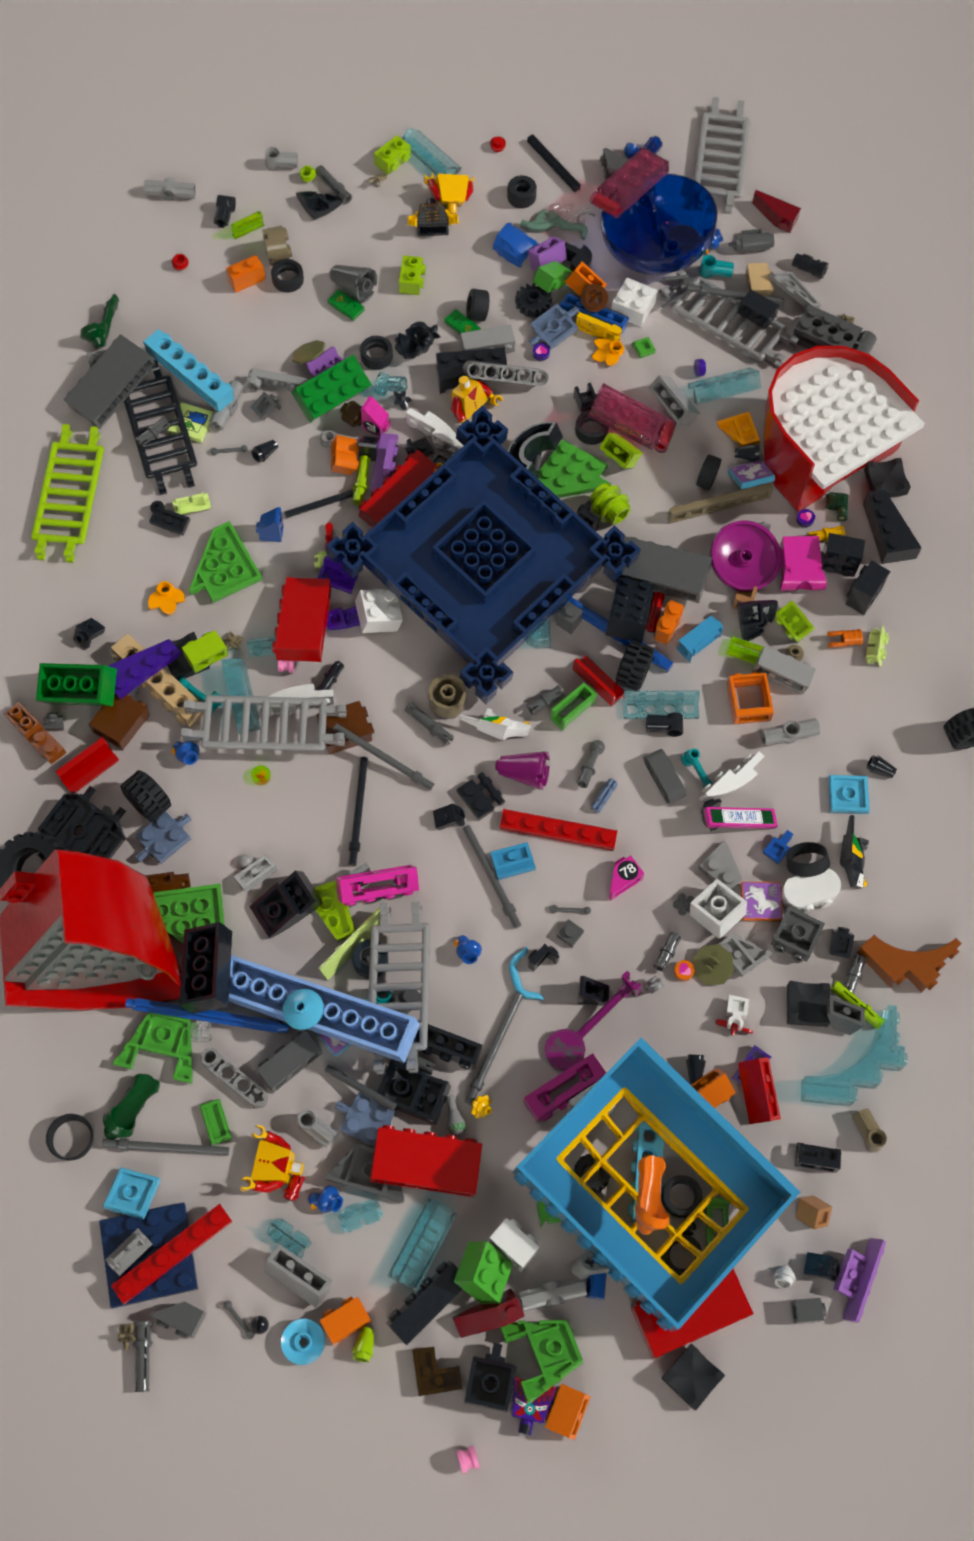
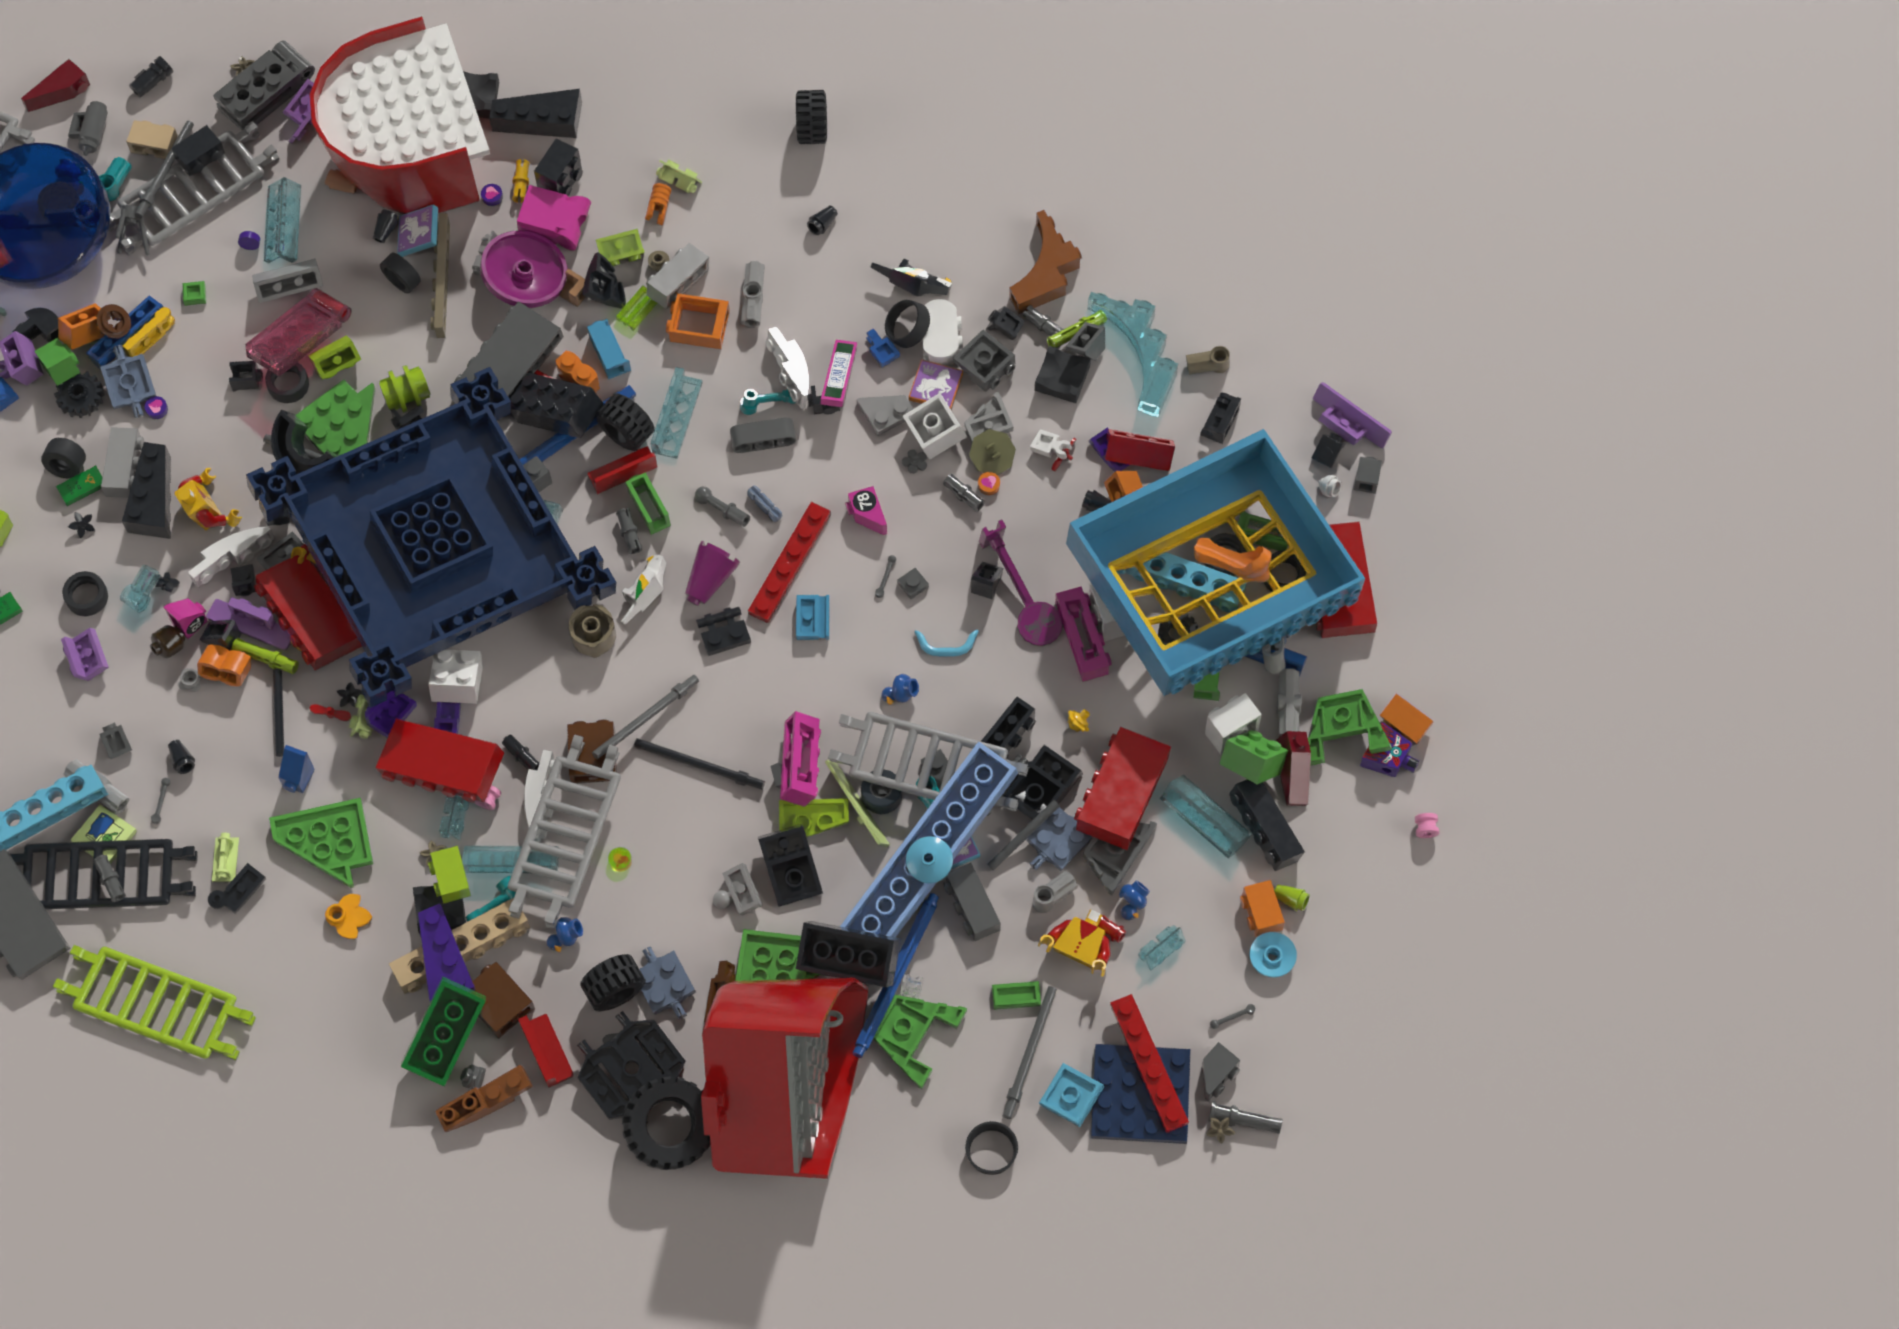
camera: 70 degrees left, 0 degrees up
(87, 631) = (365, 1015): black bracket -> none
(120, 1119) = (985, 1089): dark green hair -> none
(128, 1252) = (1135, 1106): light grey hinge -> none
(236, 1077) = (972, 962): light grey beam -> none
(259, 377) = (70, 739): light grey beam -> none
(264, 1325) = (1243, 1000): black hinge -> none
(298, 1276) = (1206, 942): light grey brick -> none
(308, 352) = (55, 671): olive piece -> none
(331, 388) = (125, 654): green brick -> none
(351, 1217) = (1158, 859): clear light blue hinge -> none
(415, 341) = (89, 543): black hair -> none
(434, 1380) = (1341, 841): dark brown plate -> none
(436, 729) = (625, 656): dark grey pin -> none
(448, 816) = (739, 669): black bracket -> none
(456, 1123) = (1088, 751): light grey piece -> none
(477, 1083) = (1051, 719): dark grey bar -> none
(490, 1367) = (1347, 782): black hinge -> none
(508, 907) = (866, 636): dark grey bar -> none
(513, 376) = (181, 451): light grey beam -> none
(539, 956) = (931, 619): black bracket -> none
(608, 351) = (186, 336): light orange plate -> none
(634, 301) = (128, 281): white brick -> none
(654, 984) = (995, 514): light grey plate -> none
(670, 724) = (701, 412): black piece -> none
(693, 1377) = (1402, 597): black brick -> none
(740, 429) = (351, 223): light orange wing -> none
(794, 288) = (181, 103): light grey wing -> none
(813, 1212) = (1279, 435): medium nougat panel -> none
(838, 502) = (495, 154): clear green piece -> none
(848, 794) = (842, 262): medium azure tile -> none
(866, 587) = (608, 159): black brick -> none

